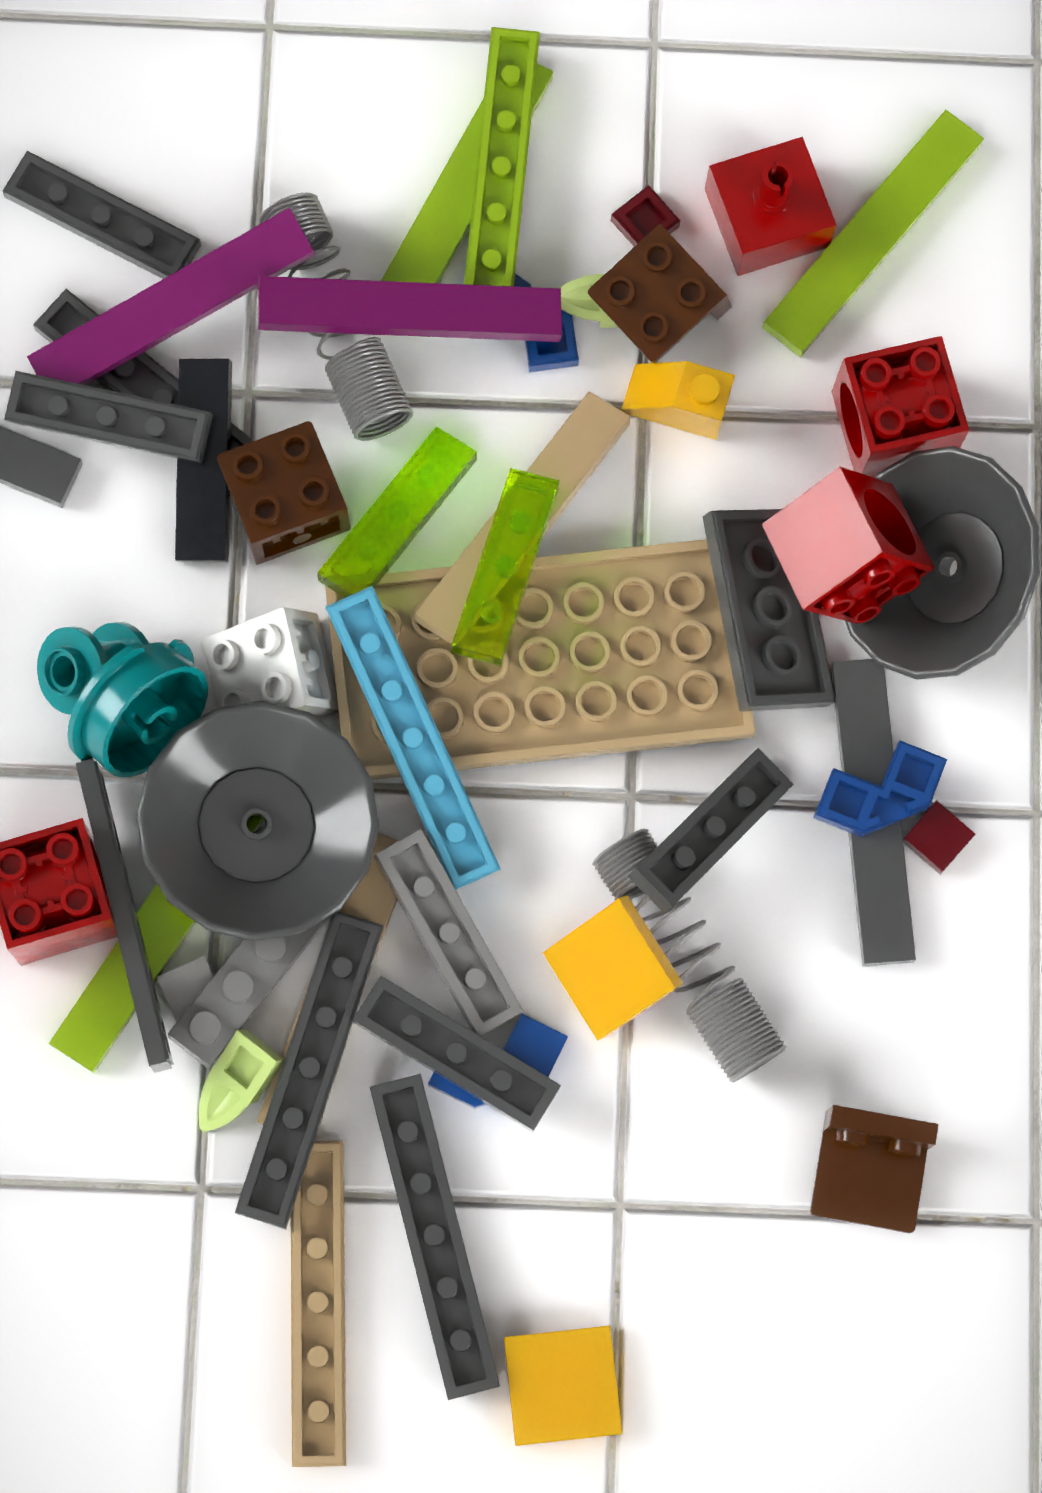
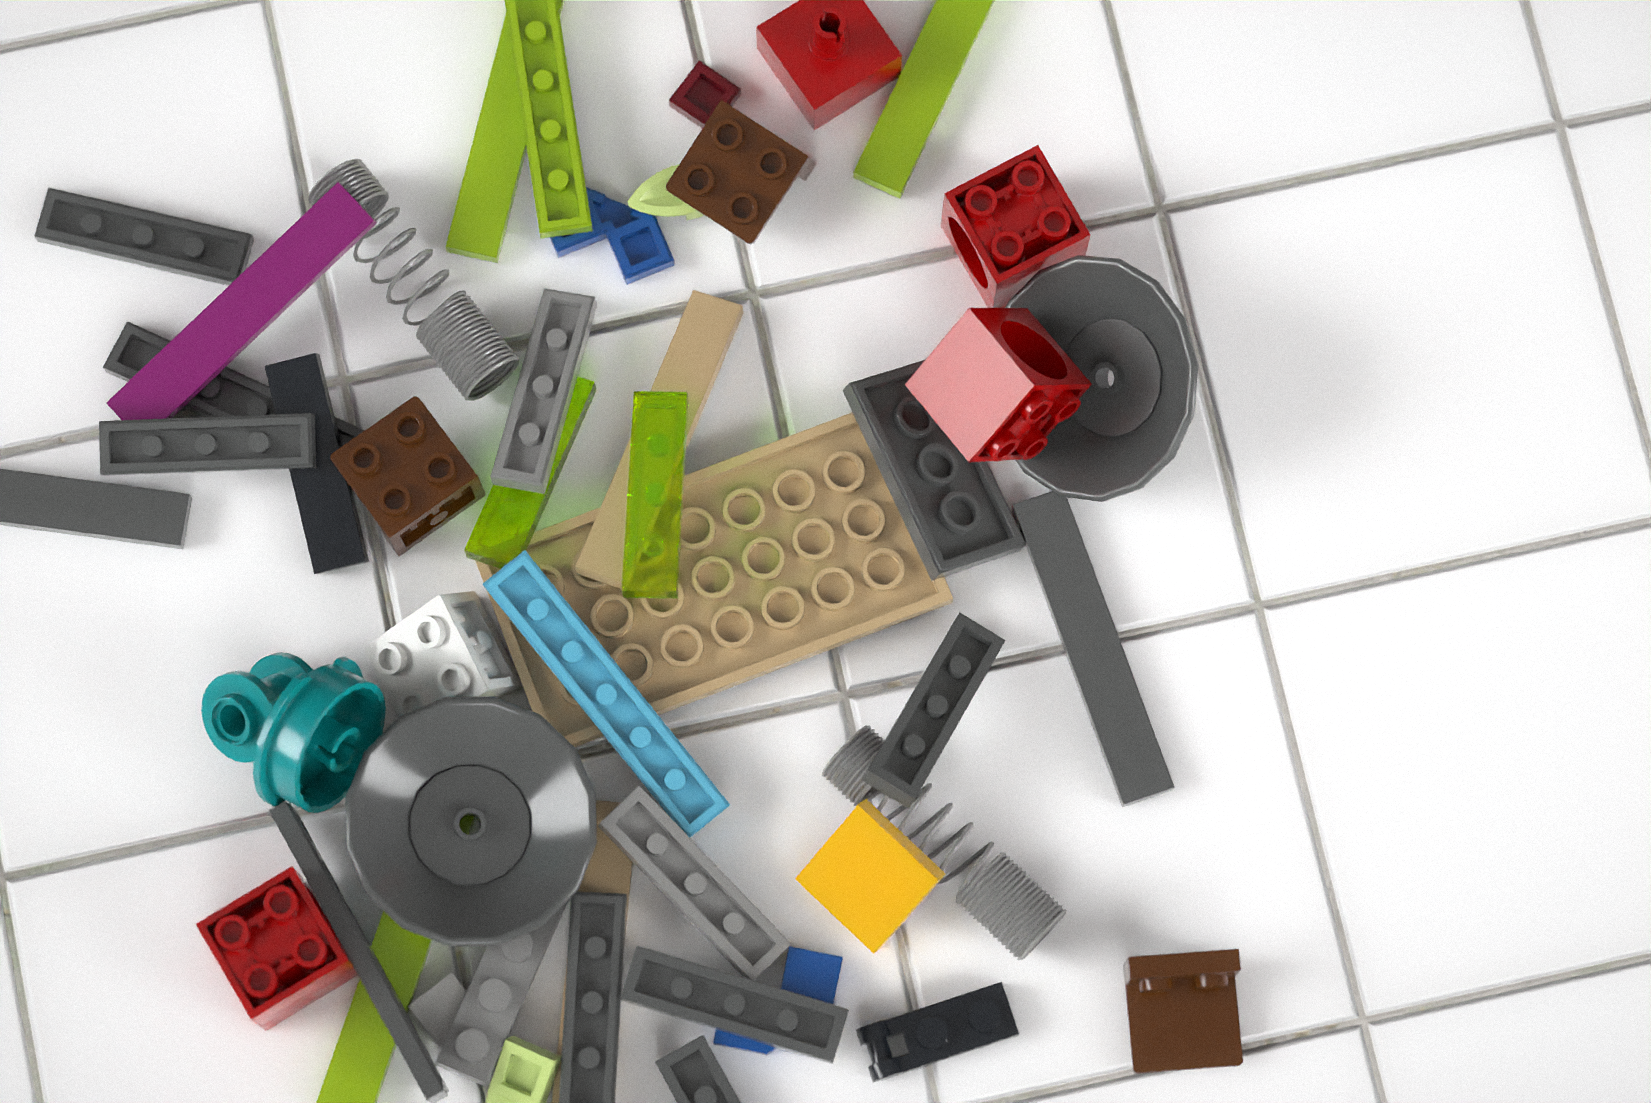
camera: 10 degrees left, 0 degrees up
(409, 309) = (487, 254): magenta tile -> none
(428, 447) = (544, 391): none -> light grey tile
(639, 1128) = (939, 1031): none -> black plate
(679, 396) = (786, 271): yellow slope -> none
(867, 807) = (1084, 645): blue tile -> none
(938, 837) = (1165, 656): dark red tile -> none

